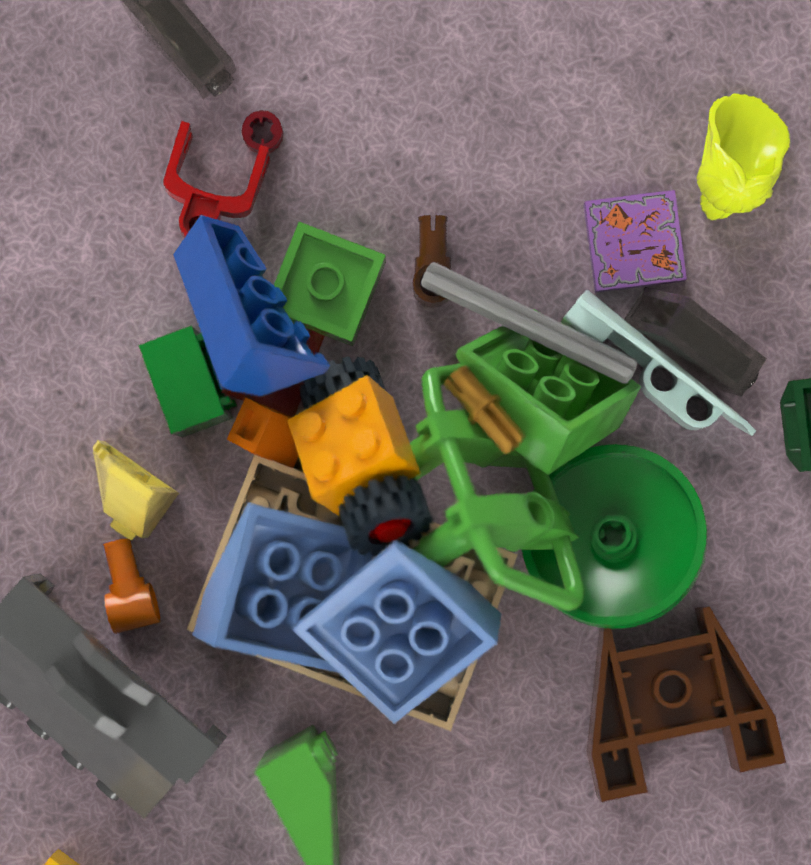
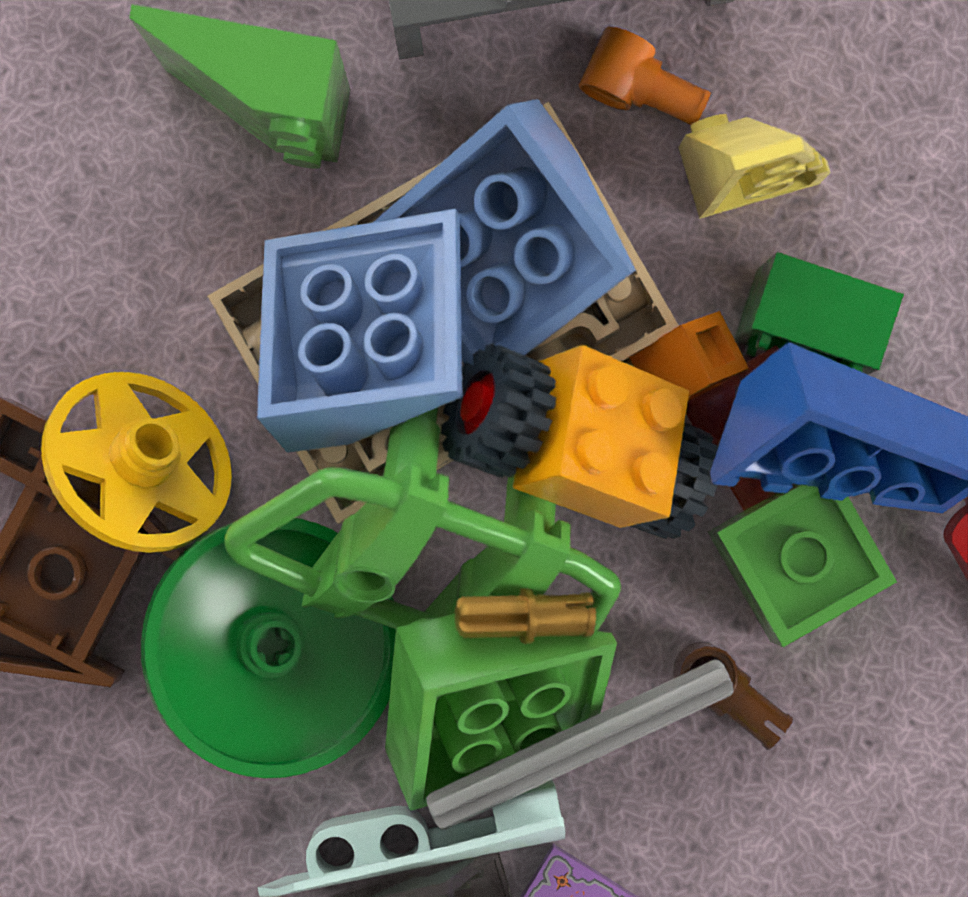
camera: 125 degrees right, 0 degrees up
(573, 695) = (136, 462): none -> yellow wheel

